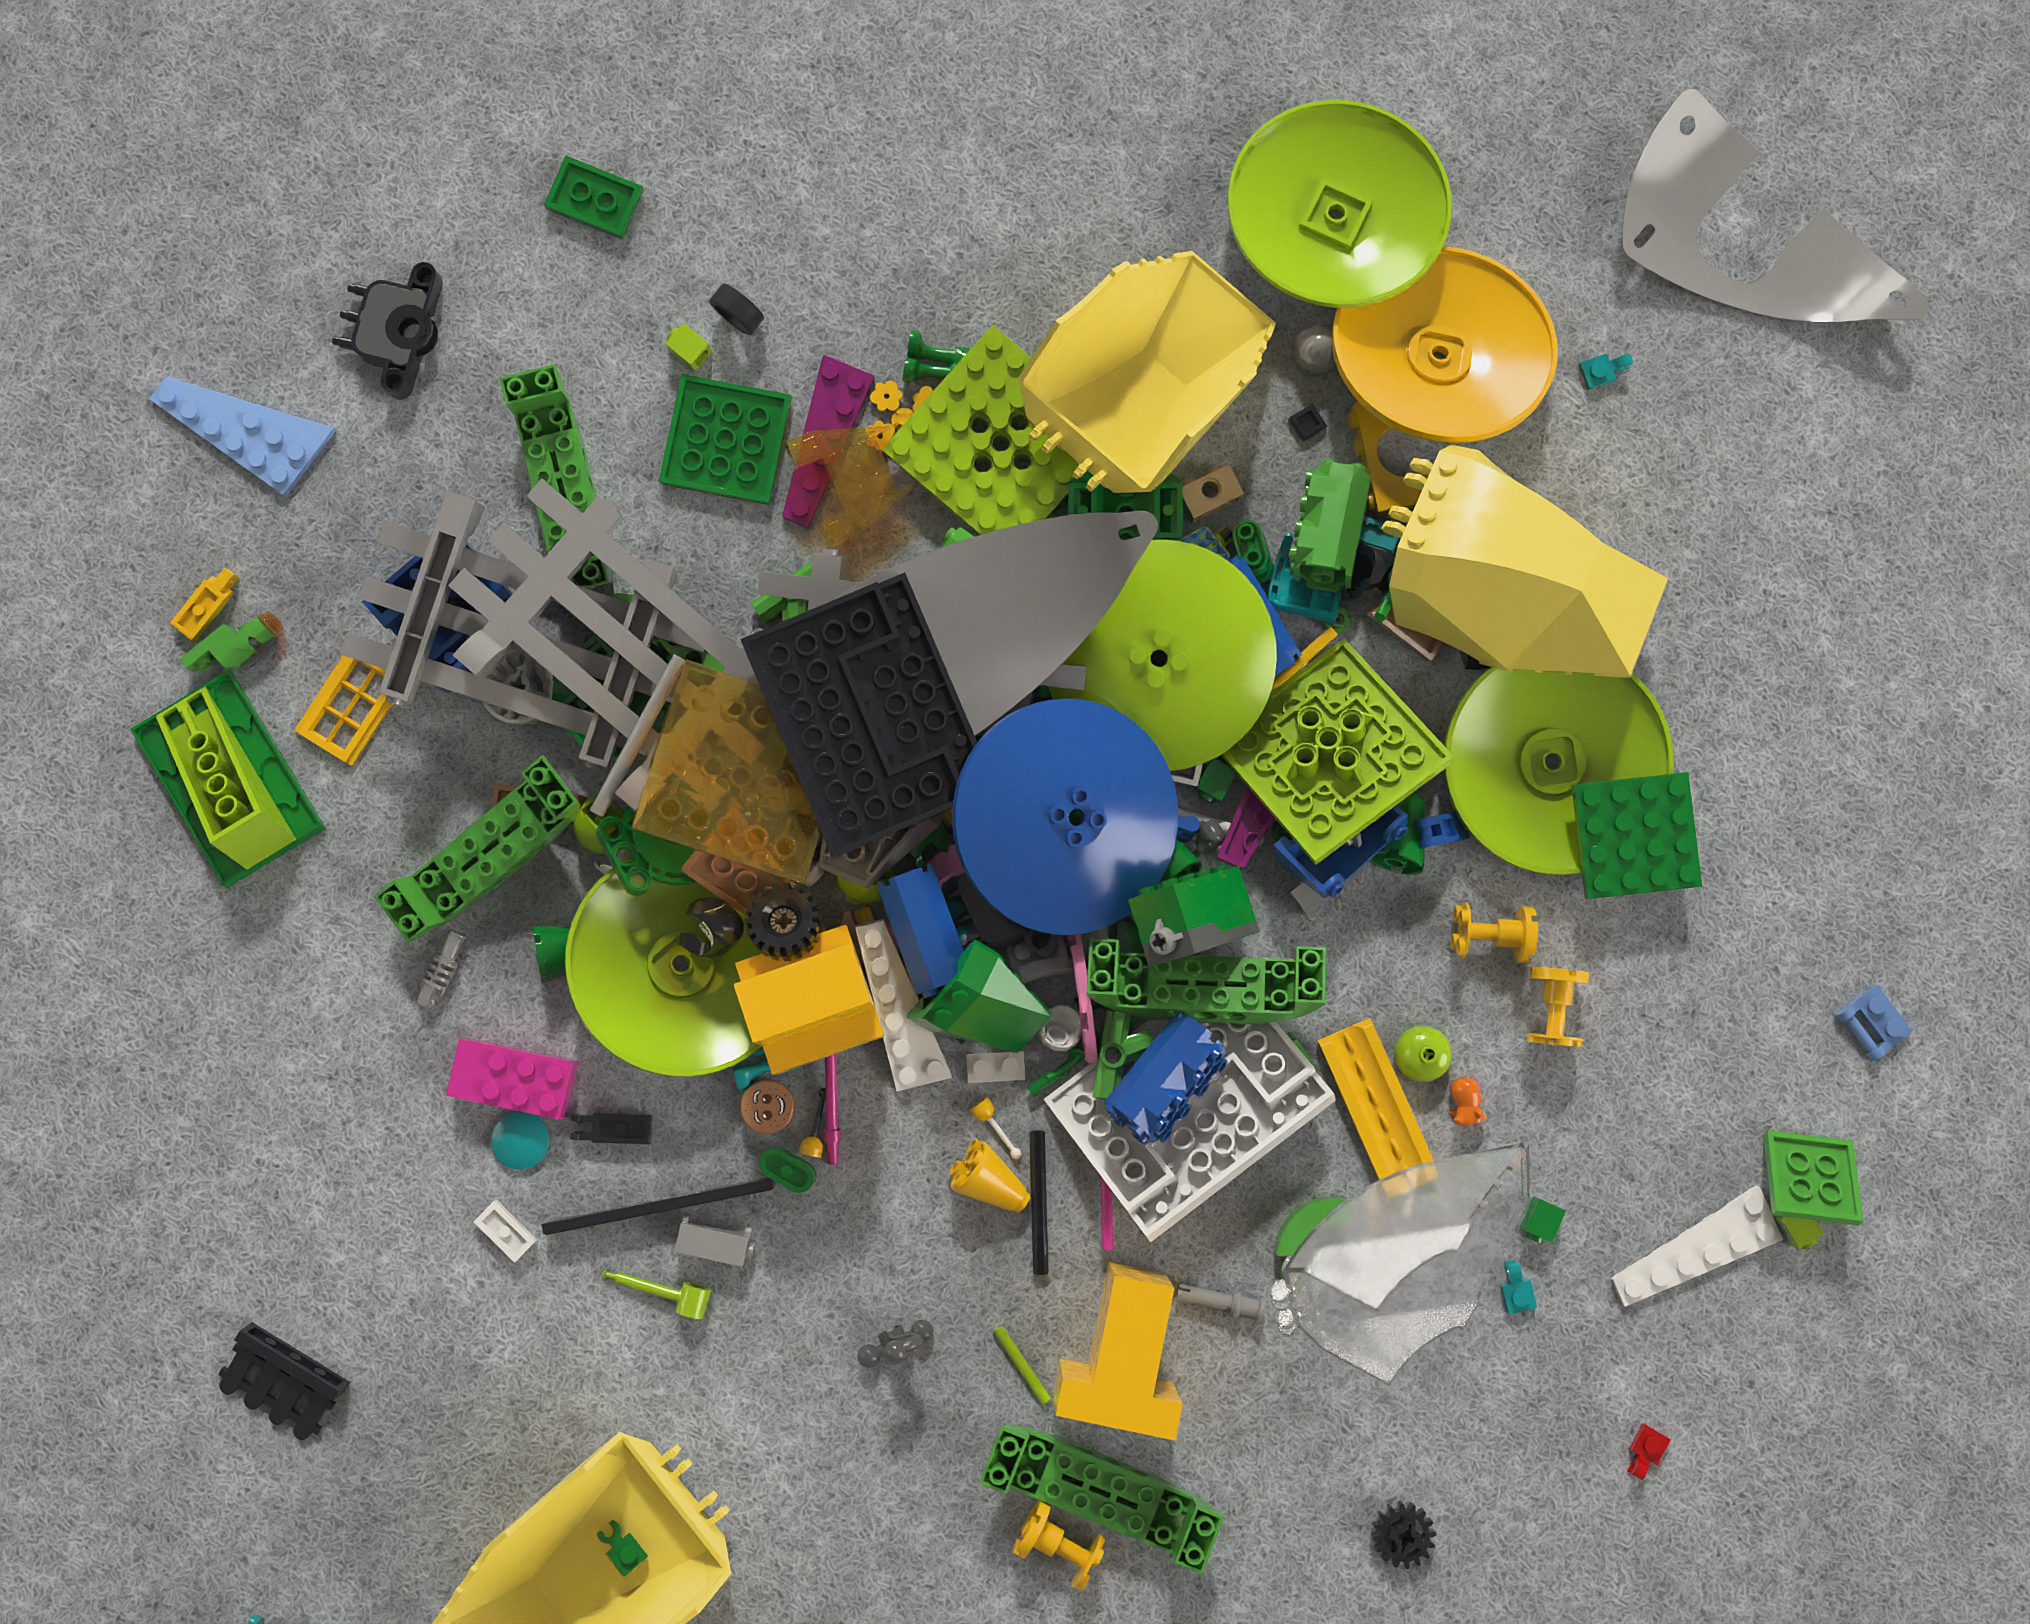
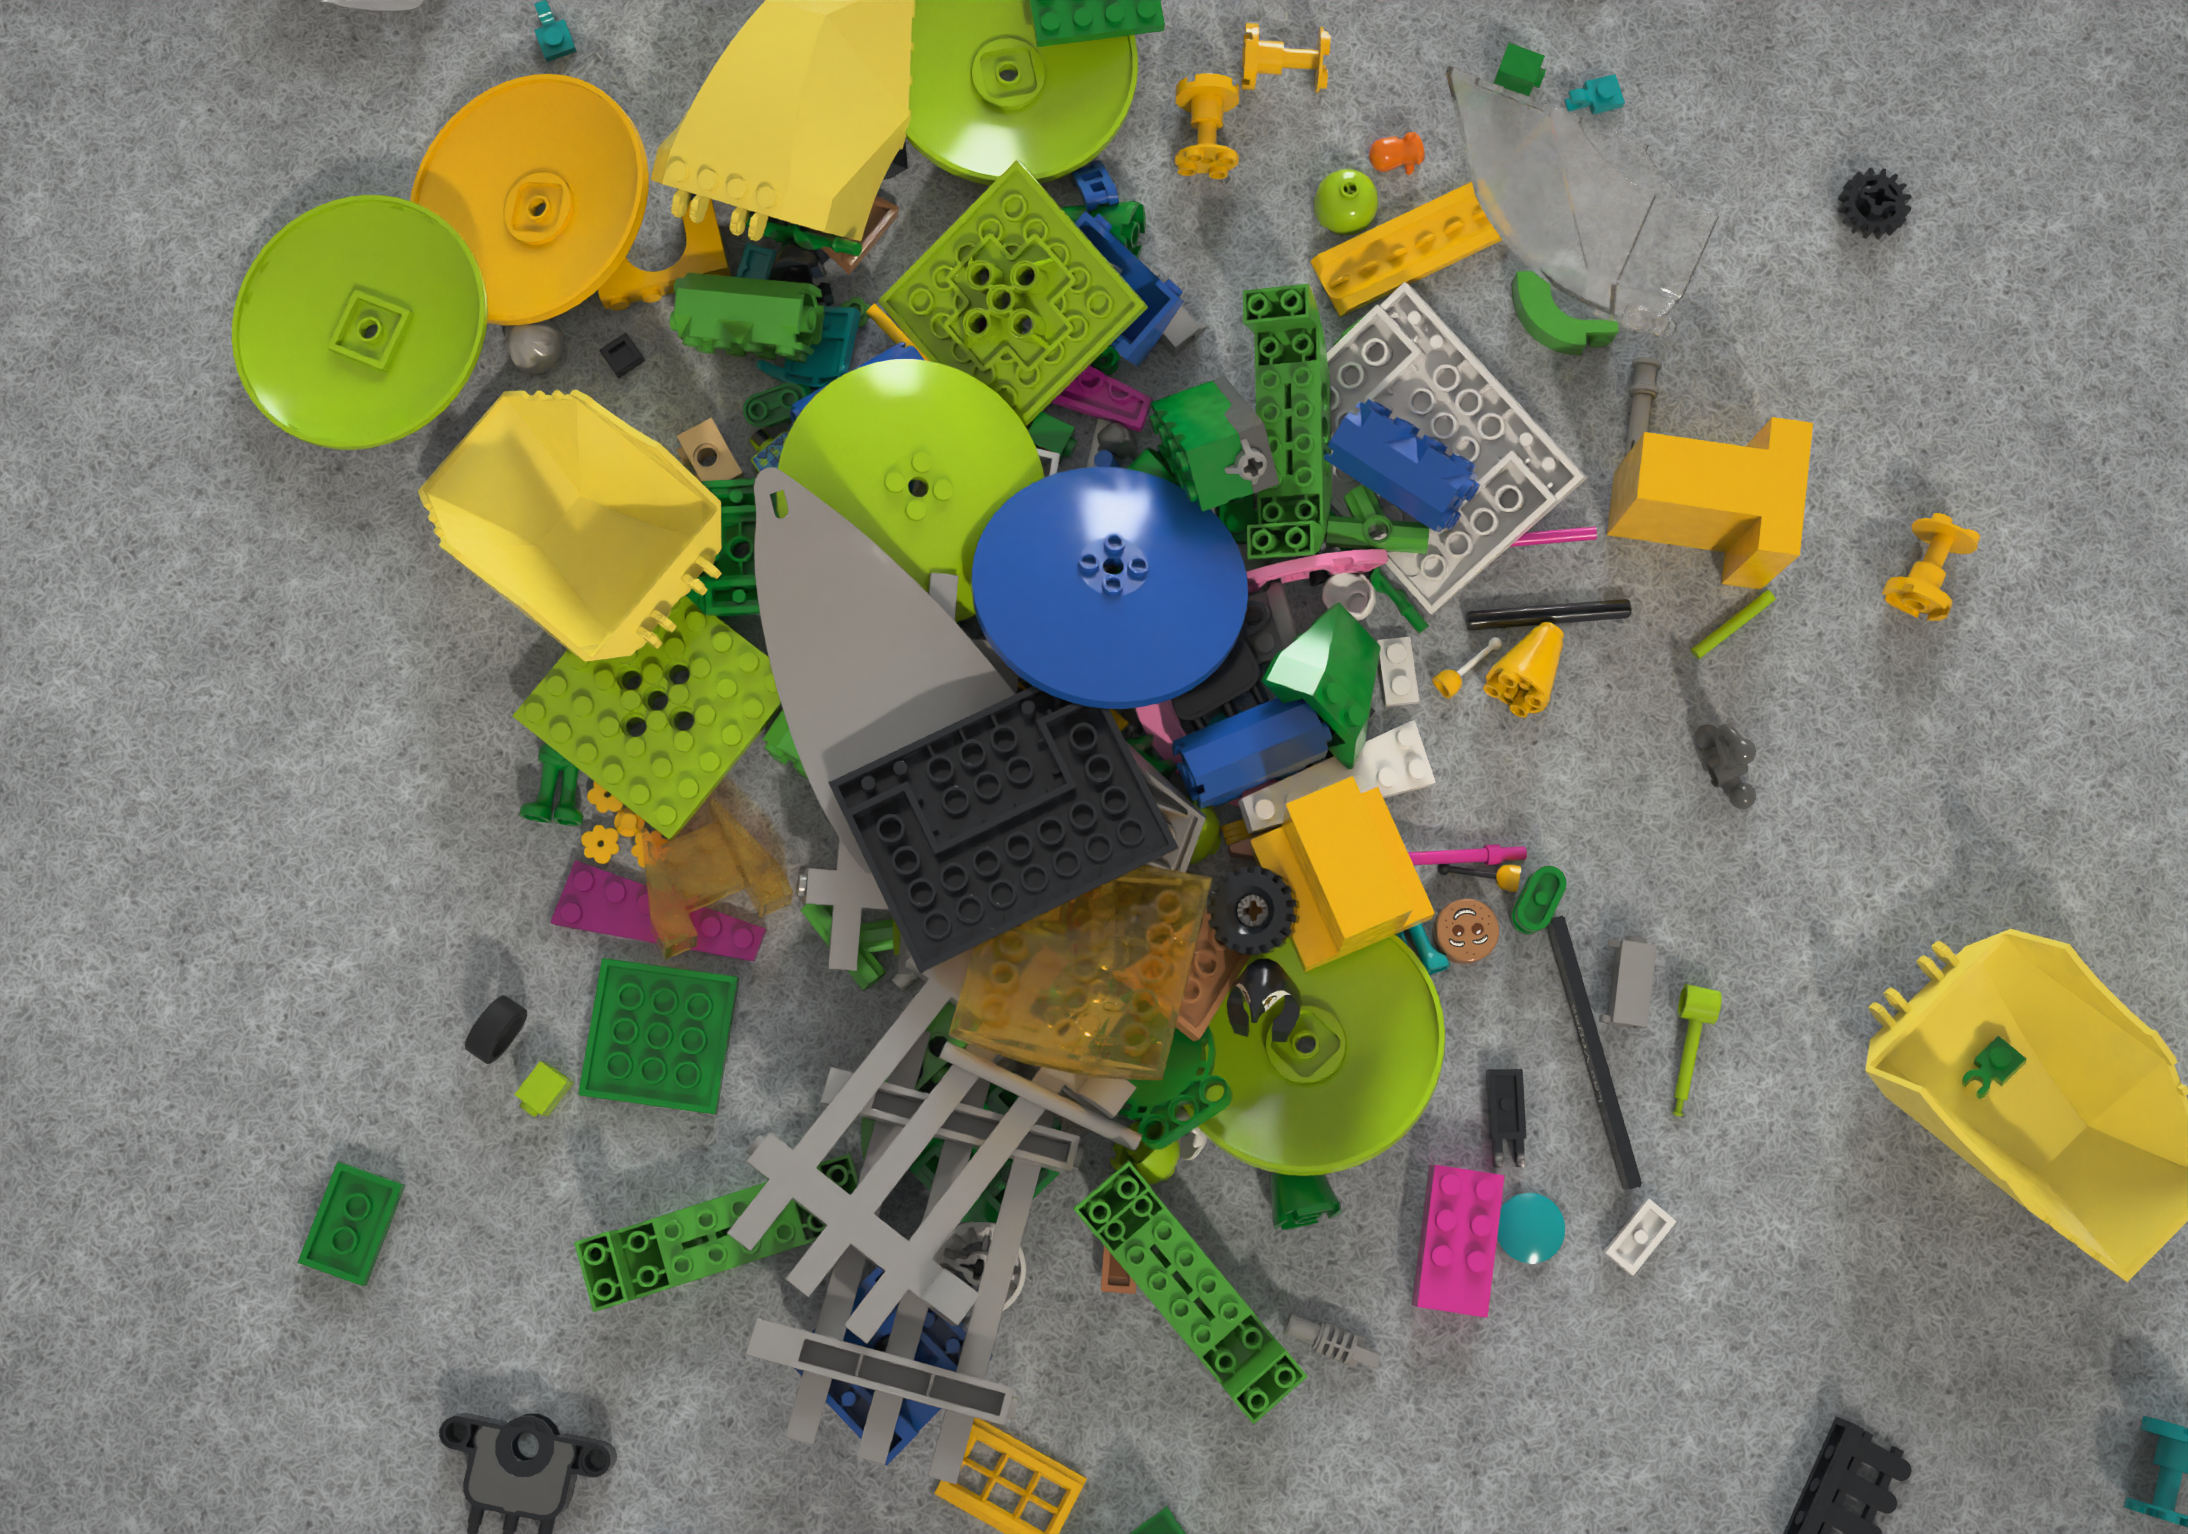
camera: 90 degrees left, 5 degrees down
(1104, 1492) = (1870, 513): bright green slope -> none

